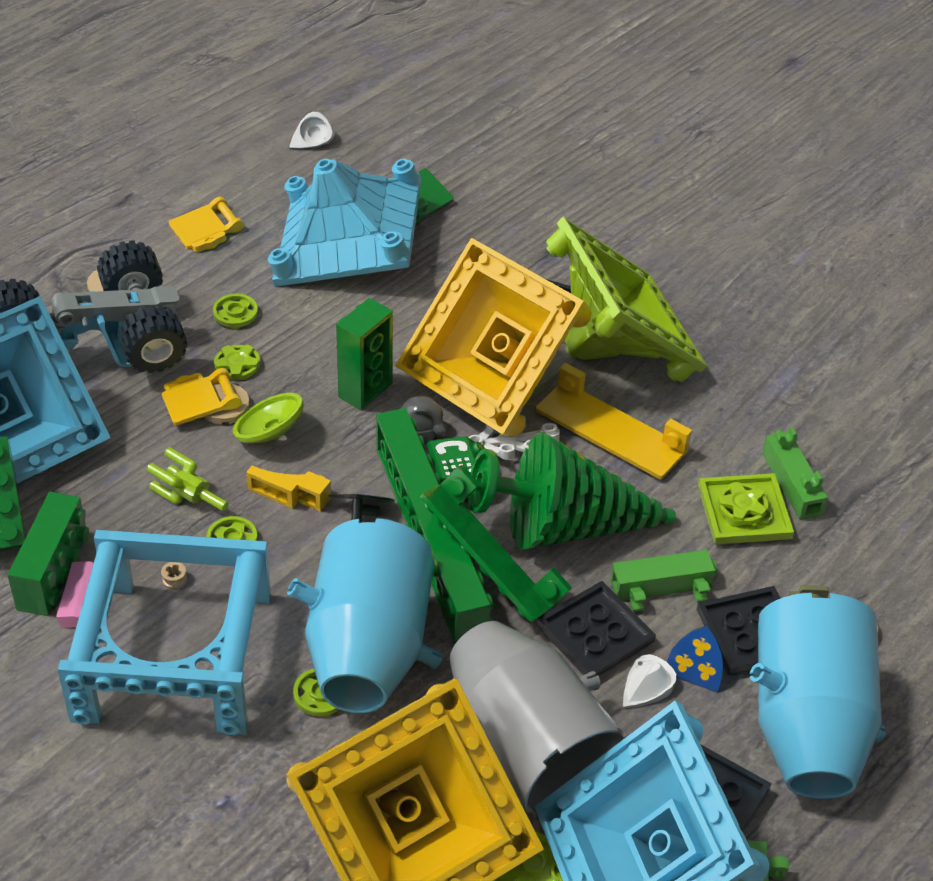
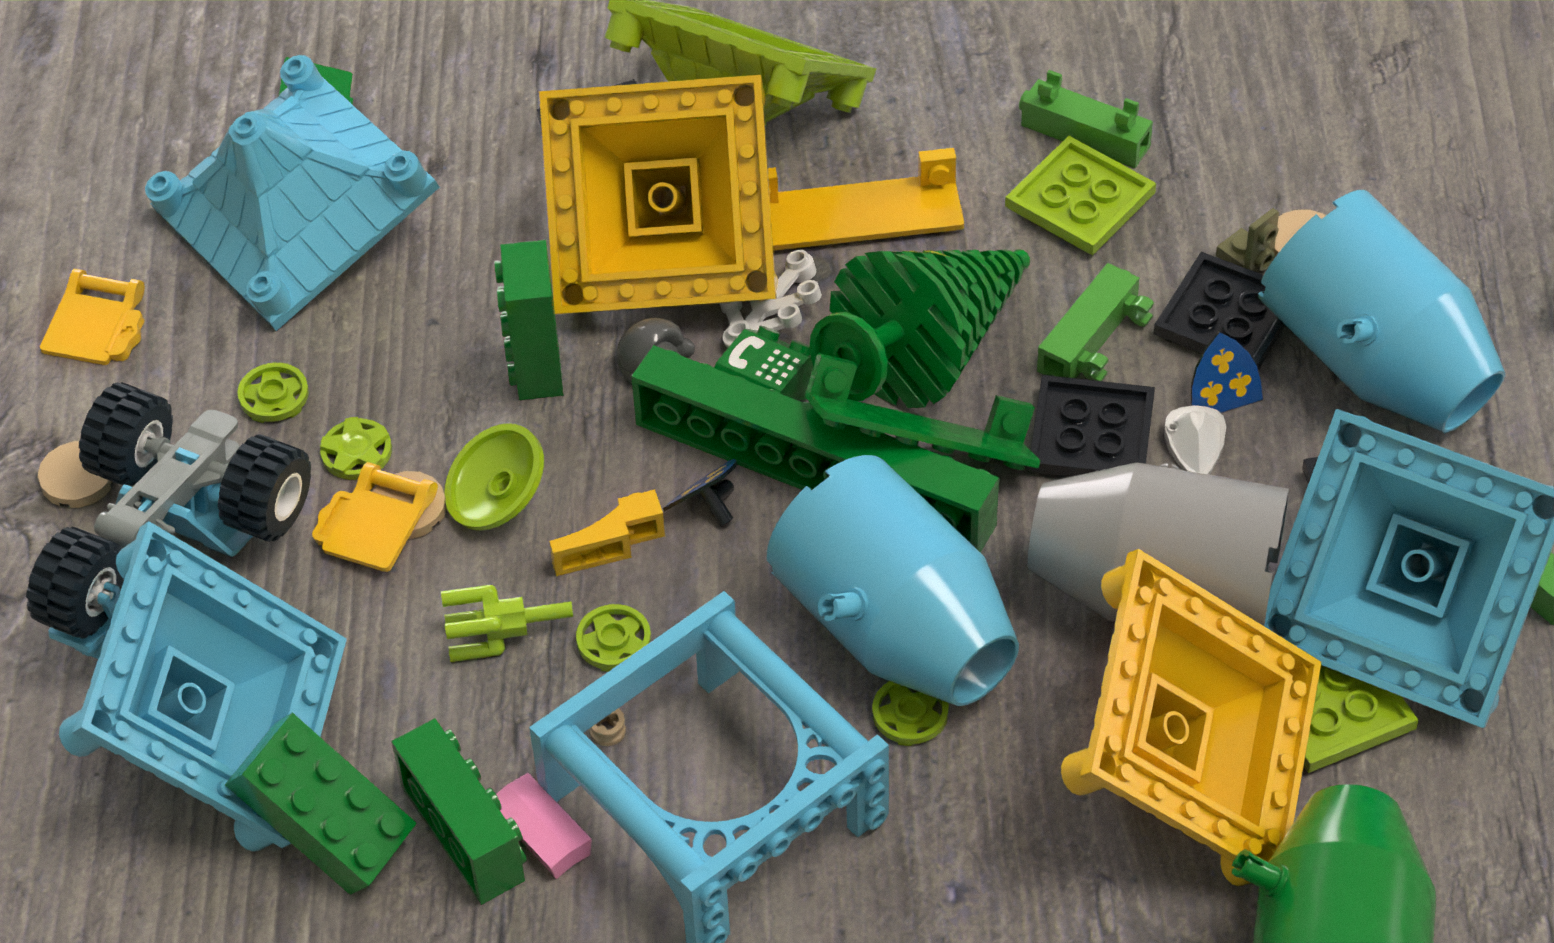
camera: 40 degrees left, 5 degrees up
(312, 132) = (76, 110): white piece -> none
(743, 501) = (1081, 188): lime wheel -> none

